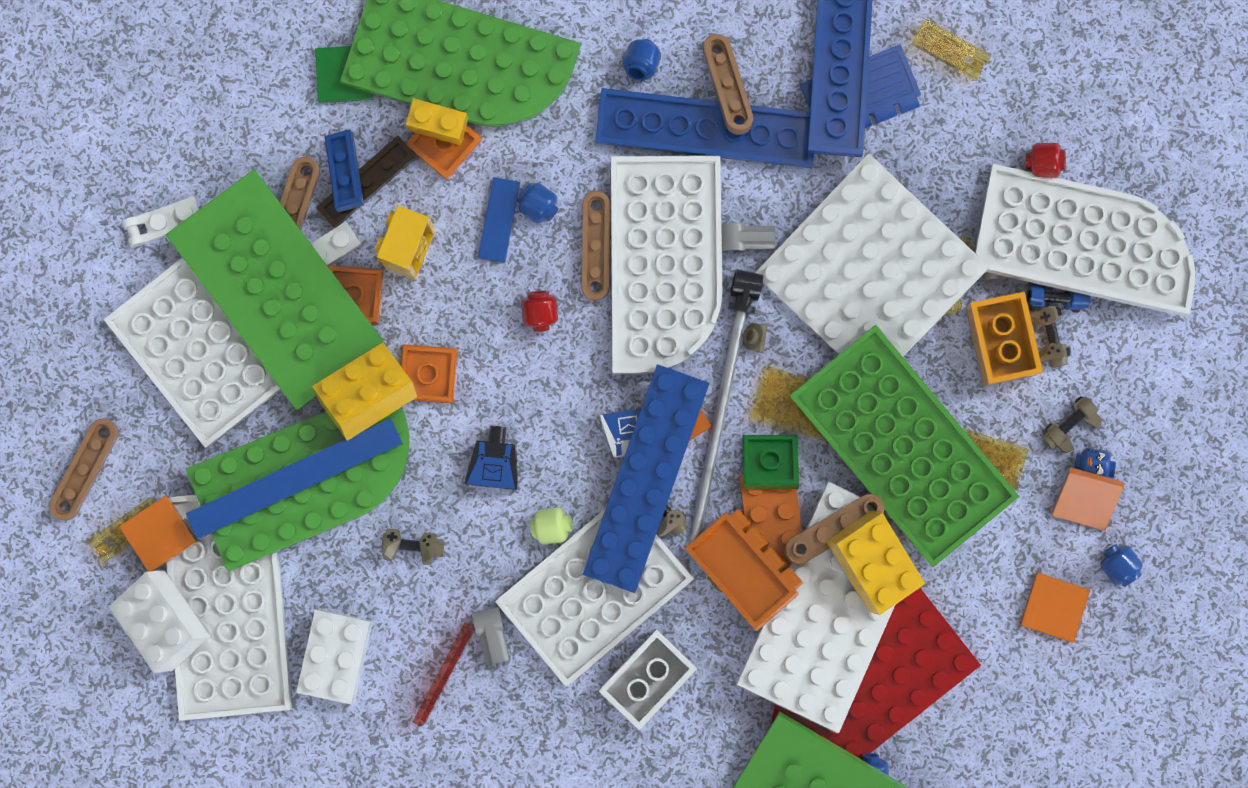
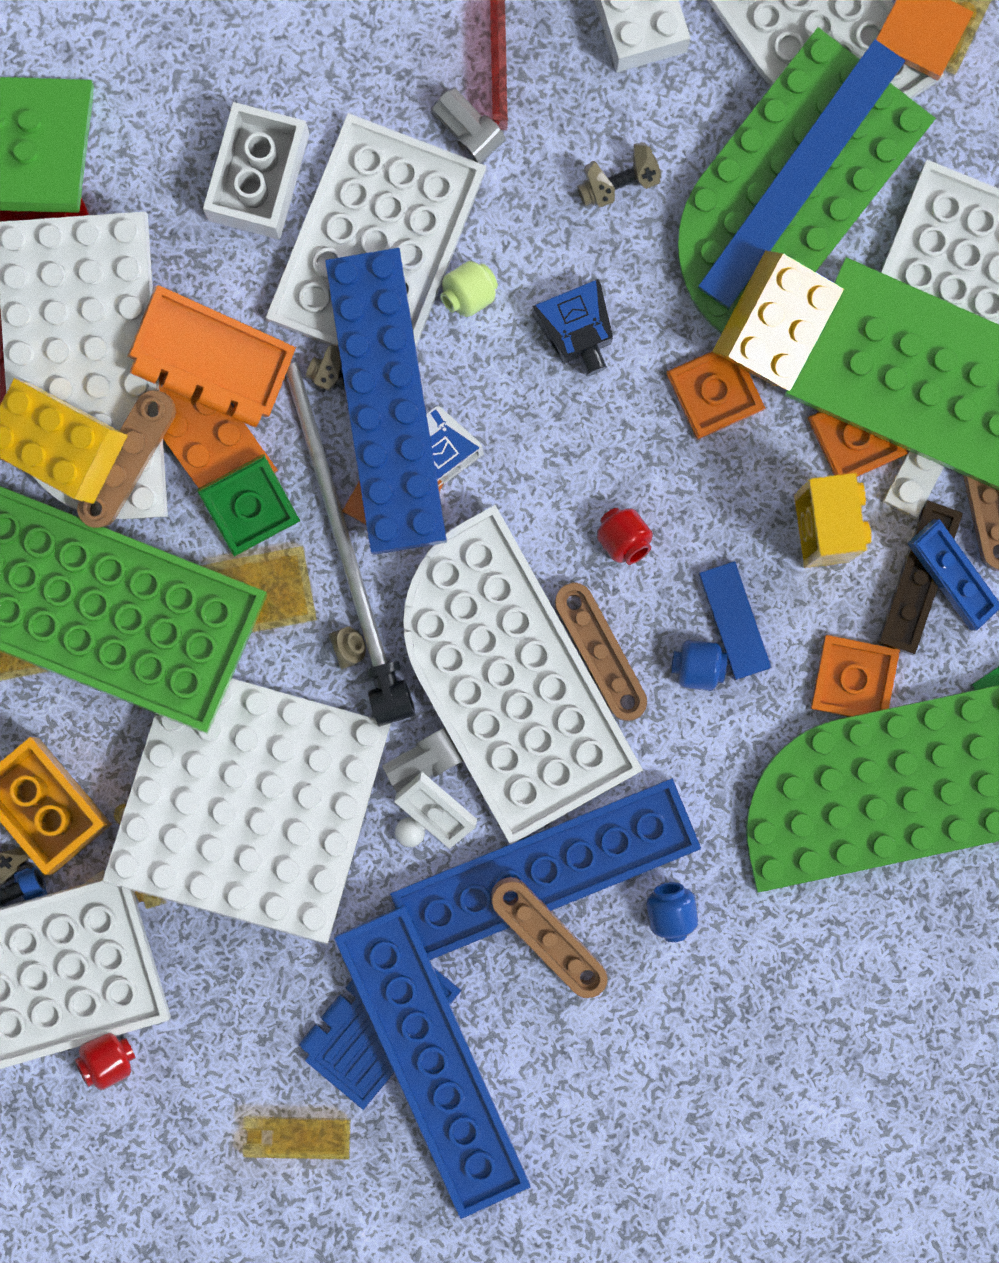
camera: 150 degrees right, 0 degrees up
(437, 121) = (877, 693): yellow brick -> none
(757, 203) = (431, 810): none -> white plate

